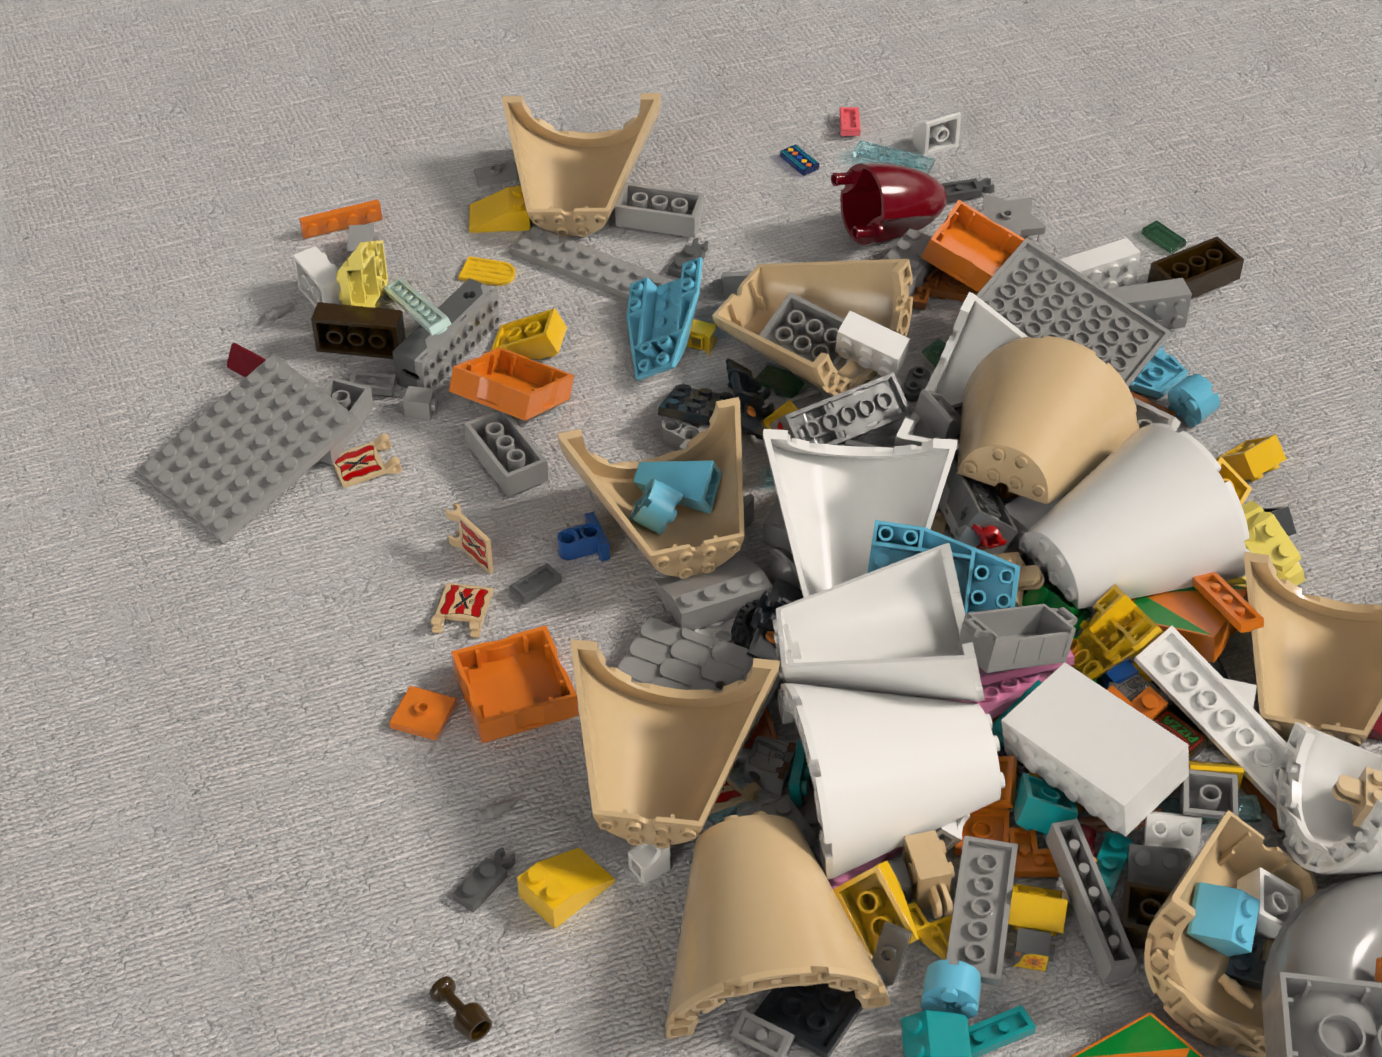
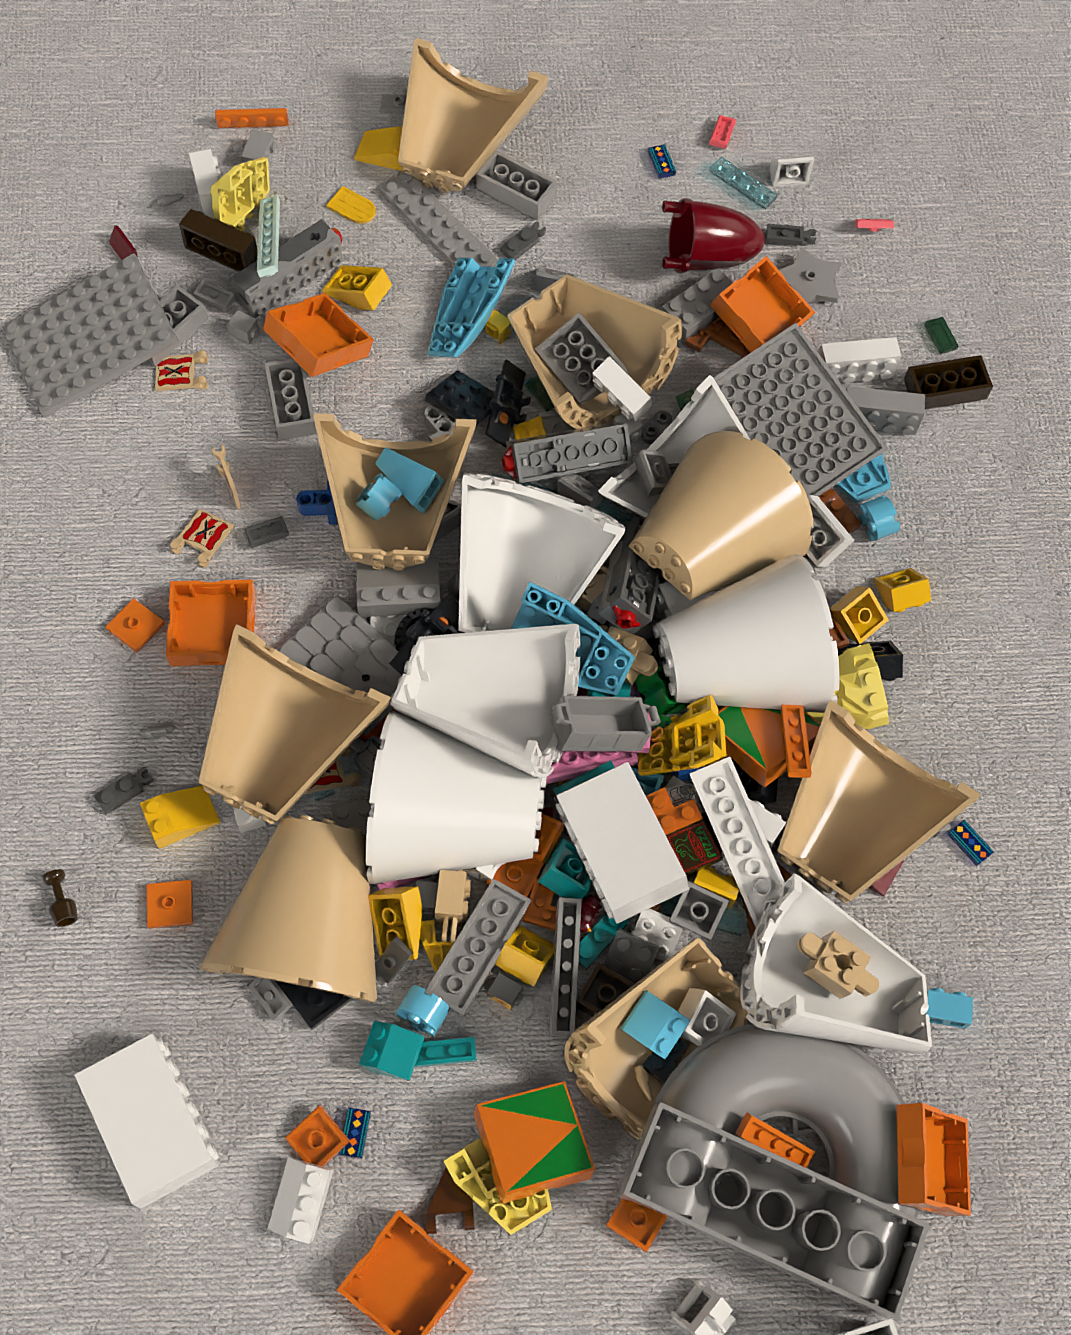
camera: 15 degrees right, 20 degrees up
(595, 979) = (169, 904): none -> orange plate
(1045, 161) = (874, 224): none -> coral plate

